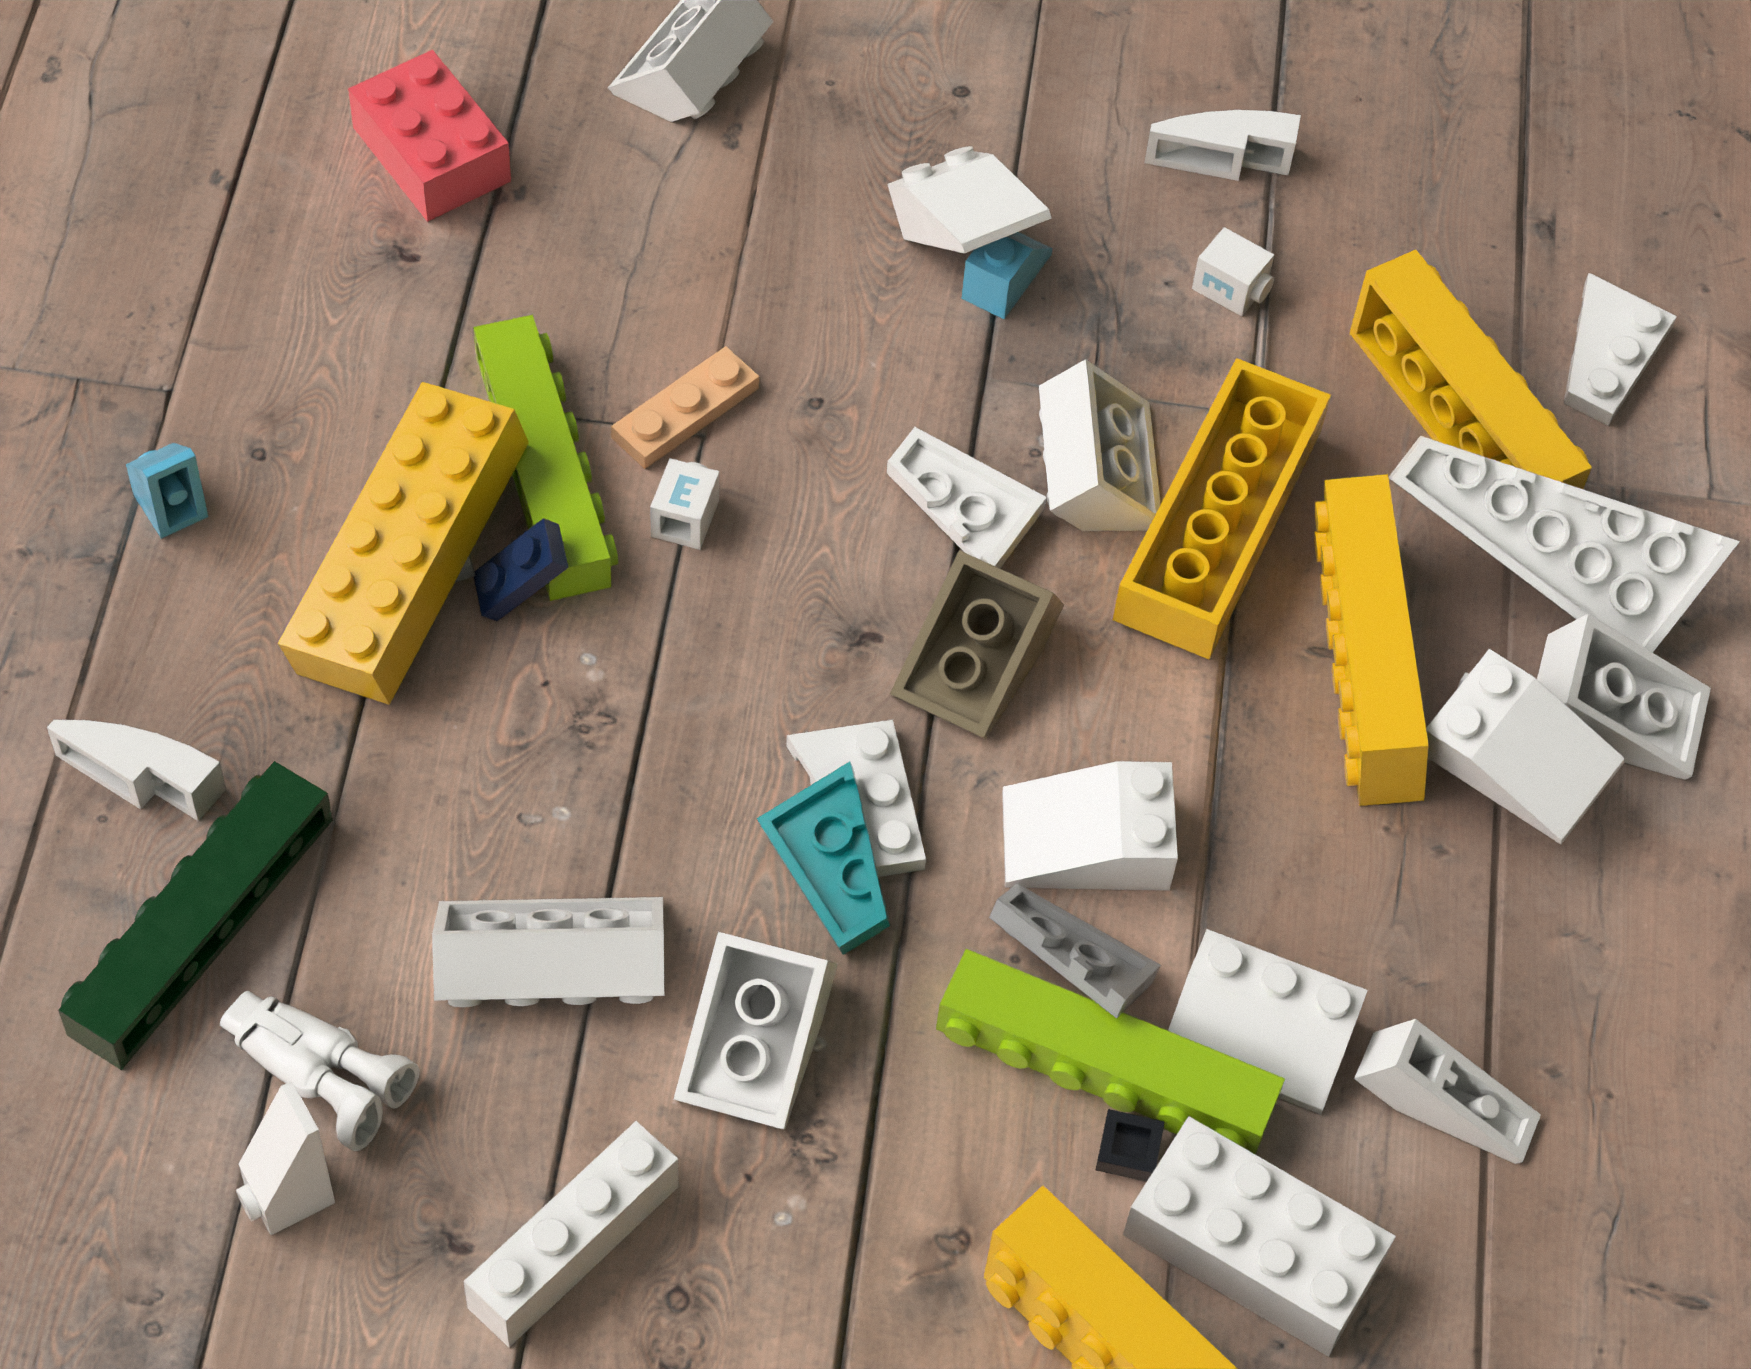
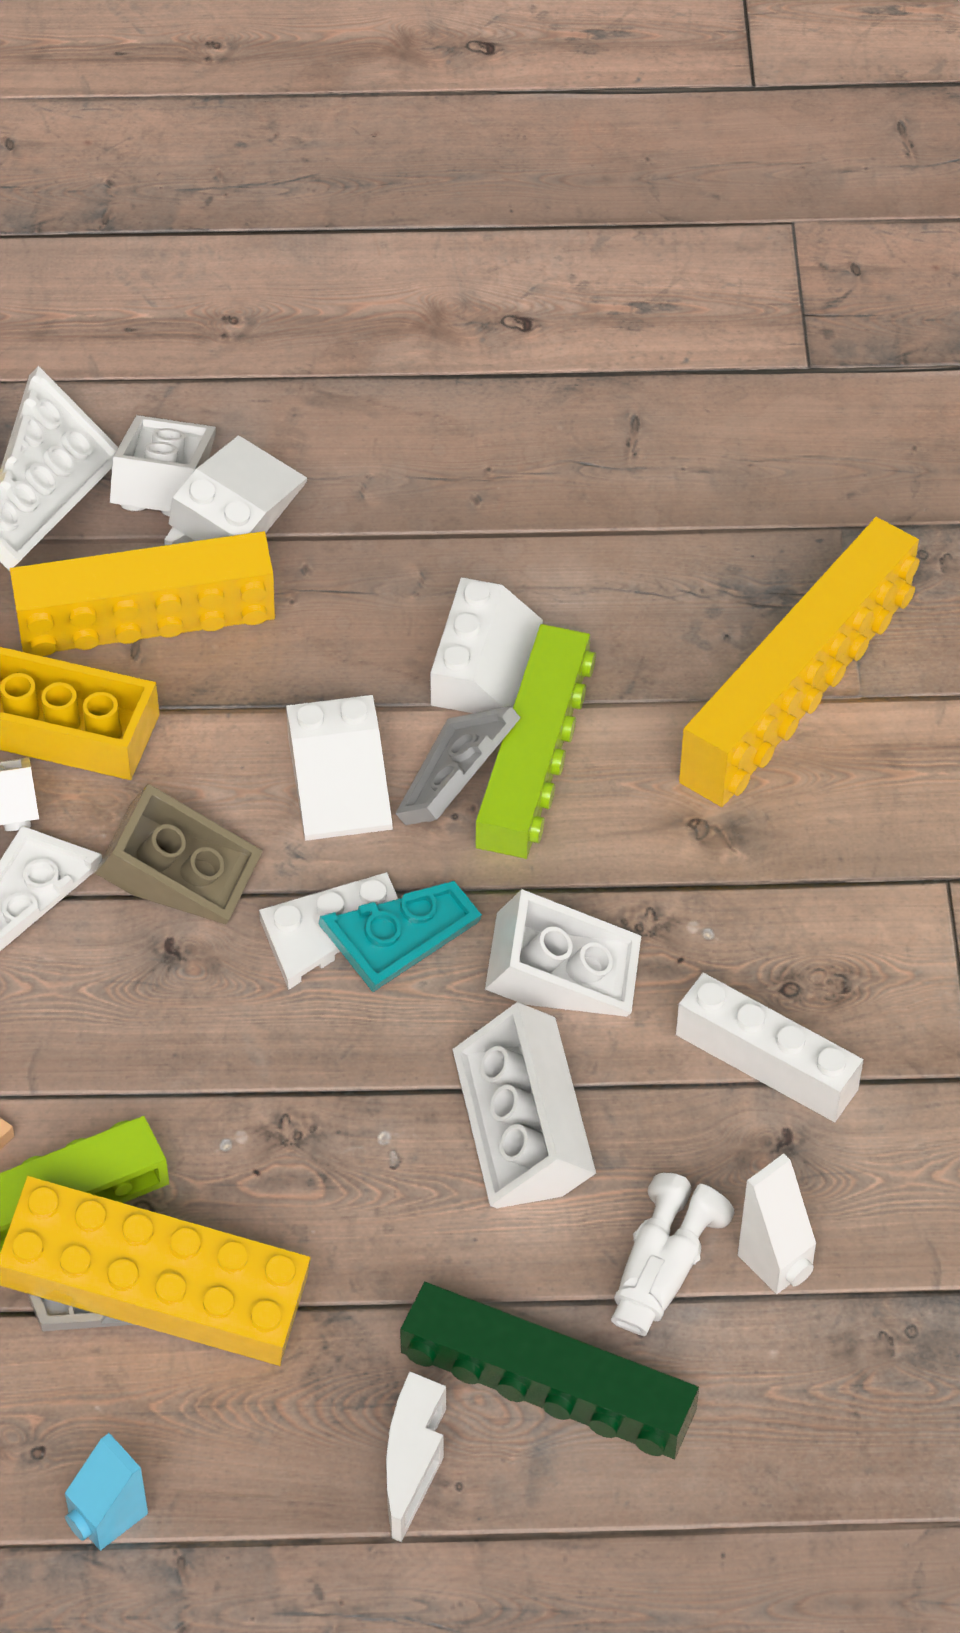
camera: 95 degrees left, 5 degrees down
(520, 569) = (163, 1178): dark blue plate -> none
(684, 503) = (61, 1084): white brick -> none
(1129, 1145) = (604, 722): black plate -> none
(1258, 1235) = (658, 640): white brick -> none
(1446, 1090) = (517, 546): white slope -> none

